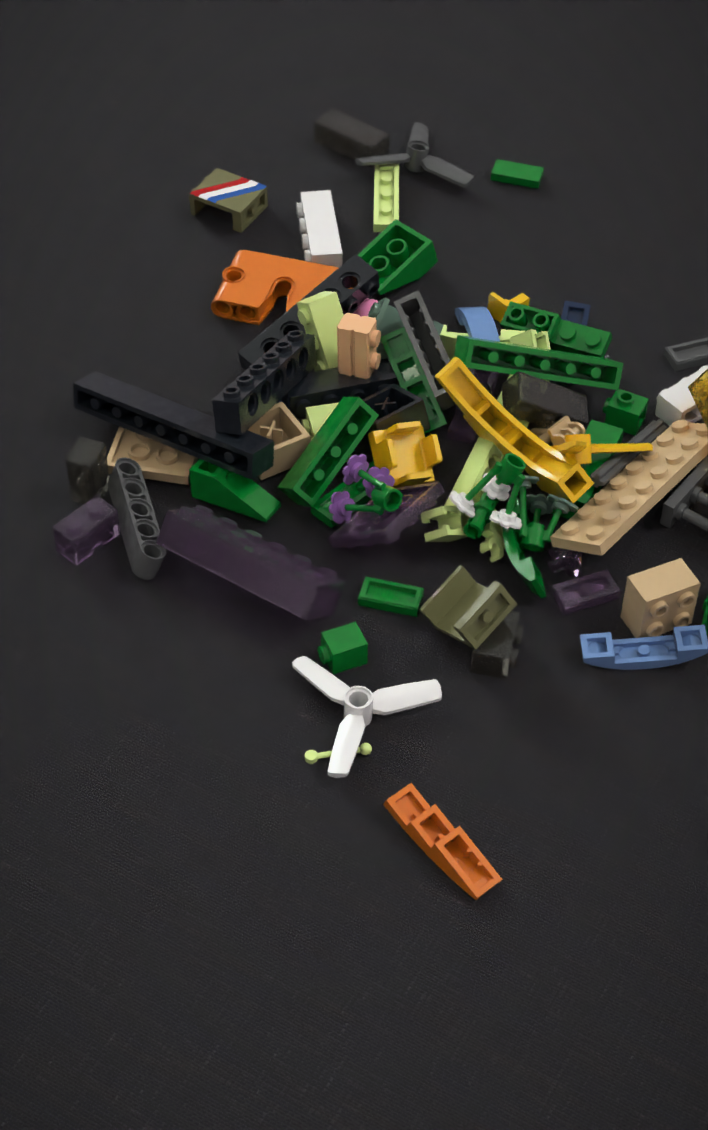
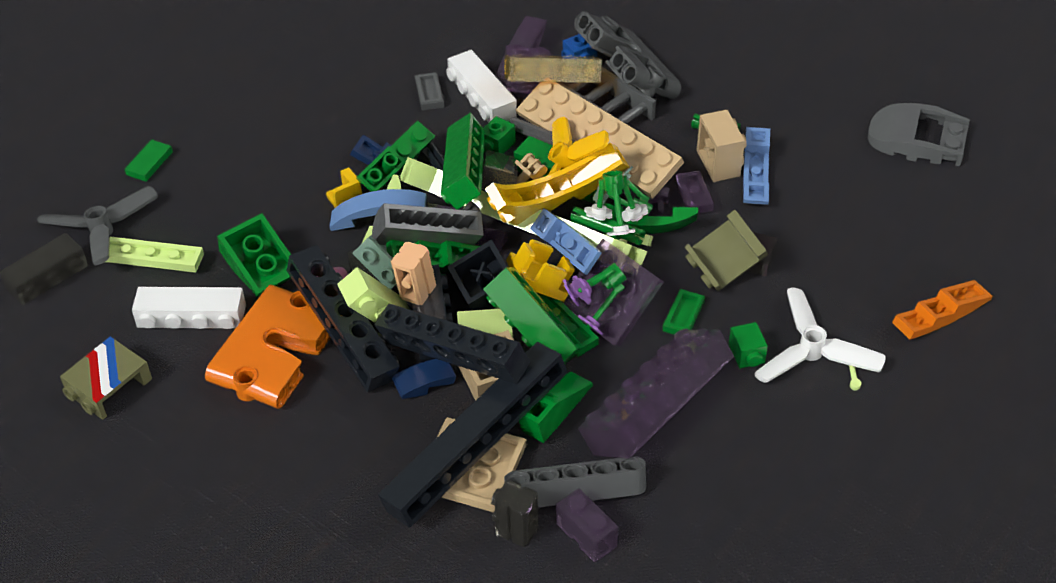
camera: 80 degrees left, 0 degrees up
(465, 461) = (566, 240): none -> medium blue slope

